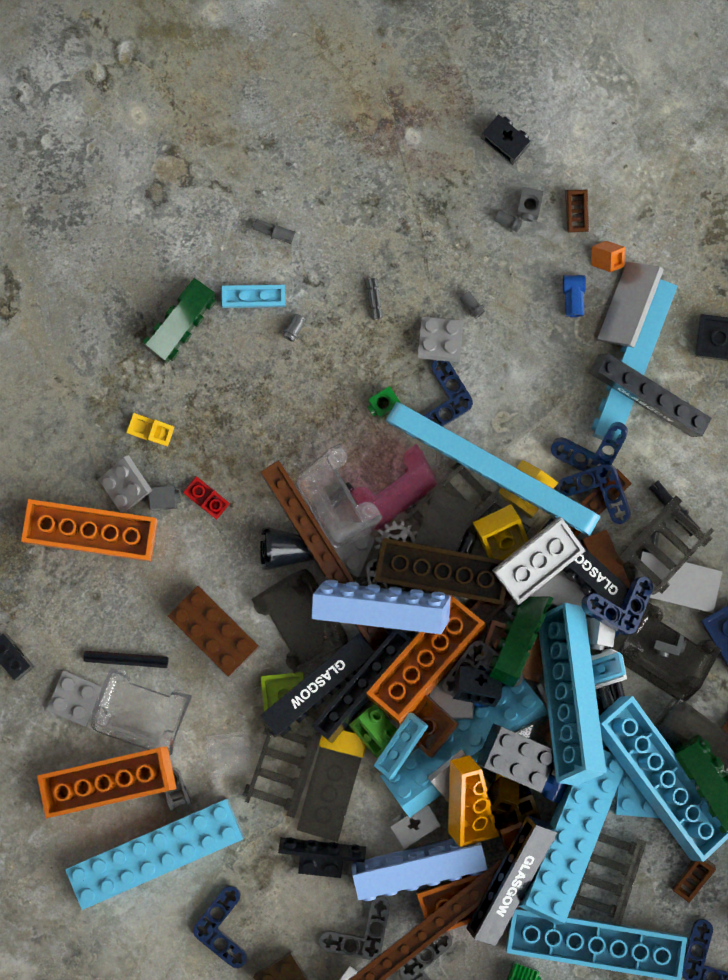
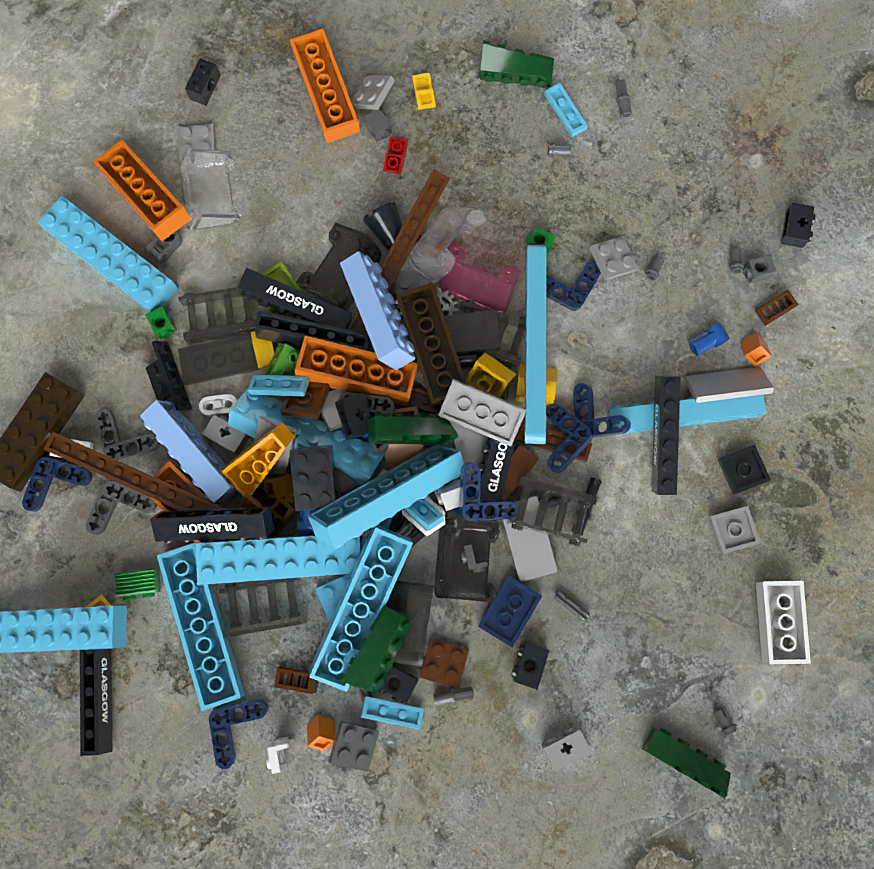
camera: 65 degrees right, 5 degrees down
(126, 659) = (244, 162): black axle -> none
(213, 631) = (297, 210): reddish brown brick -> none
(214, 932) = (71, 329): dark blue beam -> none
(251, 838) = (156, 317): none -> green brick
(374, 299) = (615, 196): dark grey axle -> none
(380, 817) = (219, 404): none -> white plate

